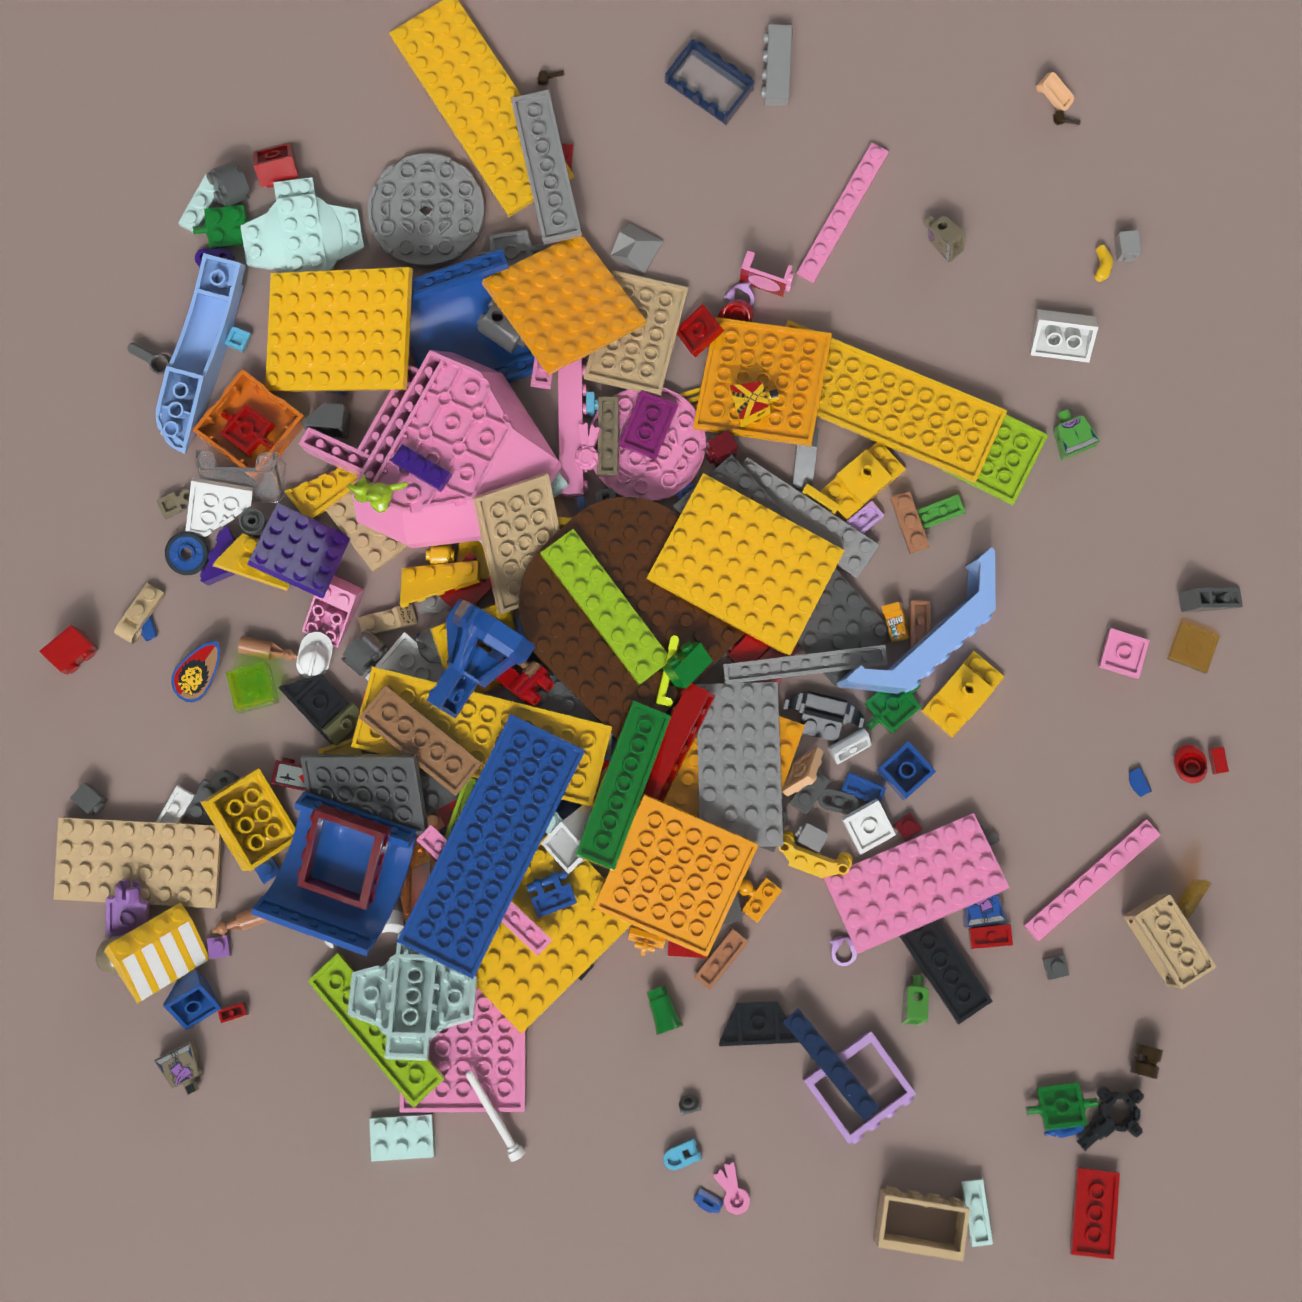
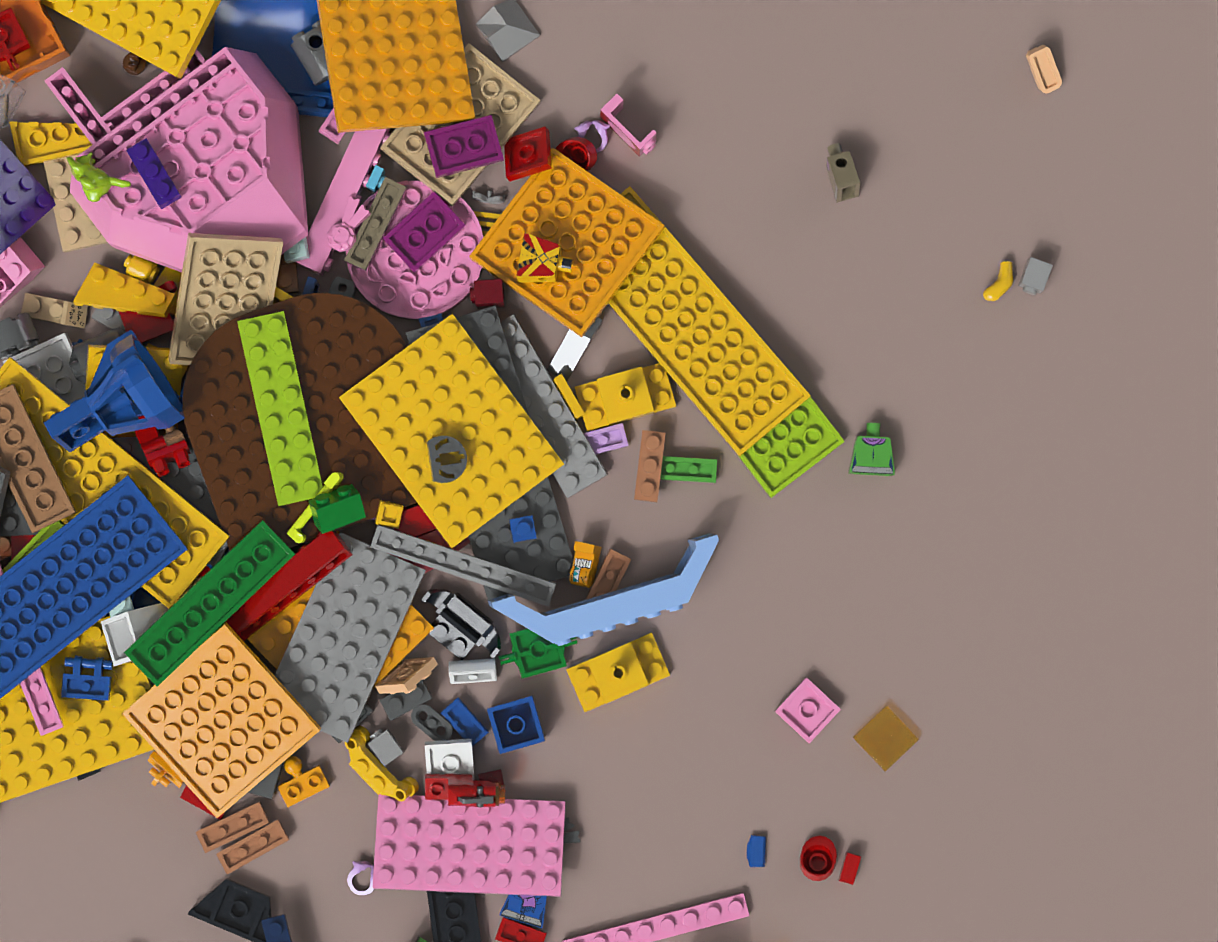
camera: 25 degrees right, 5 degrees up
(330, 420) = (91, 68): dark grey slope -> none
(361, 403) = (134, 64): none -> reddish brown plate
(648, 345) = (463, 146): none -> magenta plate
(663, 1011) = (147, 851): green plant -> none
(678, 382) = (488, 199): none -> light grey piece
(727, 652) = (389, 514): none -> yellow tile
(744, 967) = (252, 846): none -> nougat plate
(749, 596) = (452, 446): none -> dark grey piece
(836, 615) = (522, 528): none -> blue plate
(842, 212) = (748, 94): bright pink plate -> none
(891, 841) = (463, 791): none -> red plate
(1059, 118) = (1035, 100): dark brown hand -> none
(1063, 335) = (916, 341): white slope -> none
(1210, 599) = (928, 697): dark grey slope -> none

